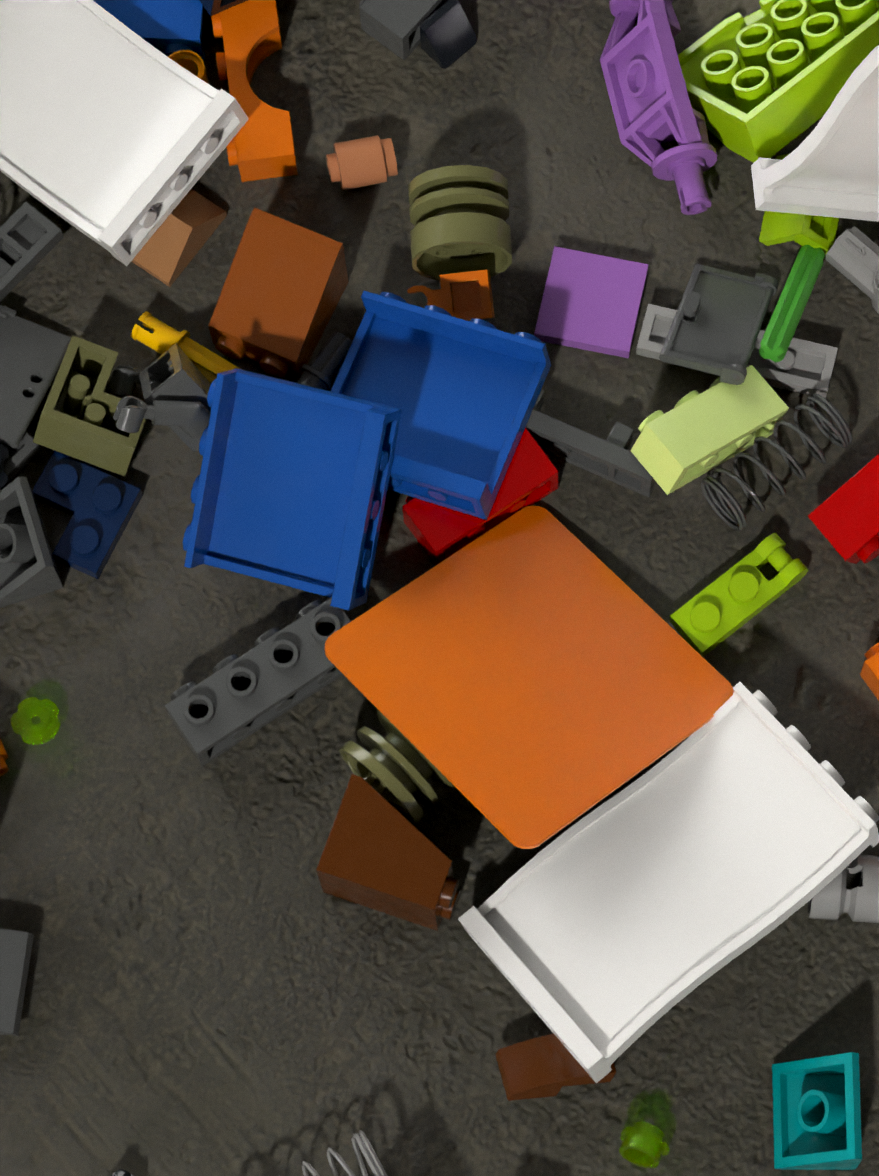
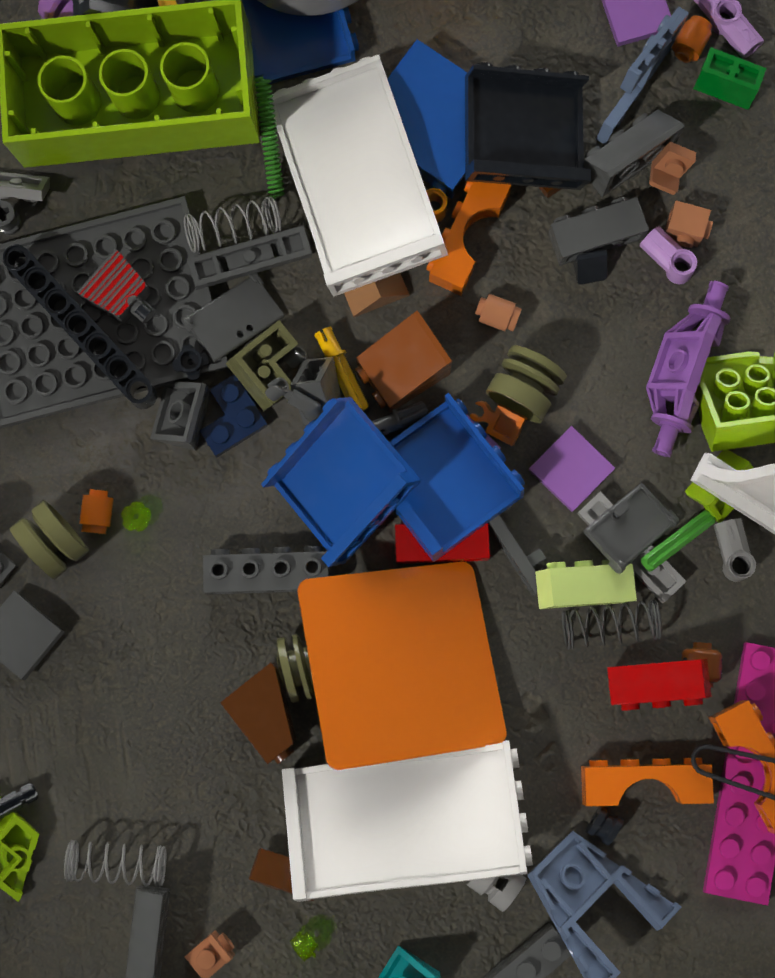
camera: 30 degrees right, 10 degrees up
(737, 596) = (543, 682): lime plate -> none

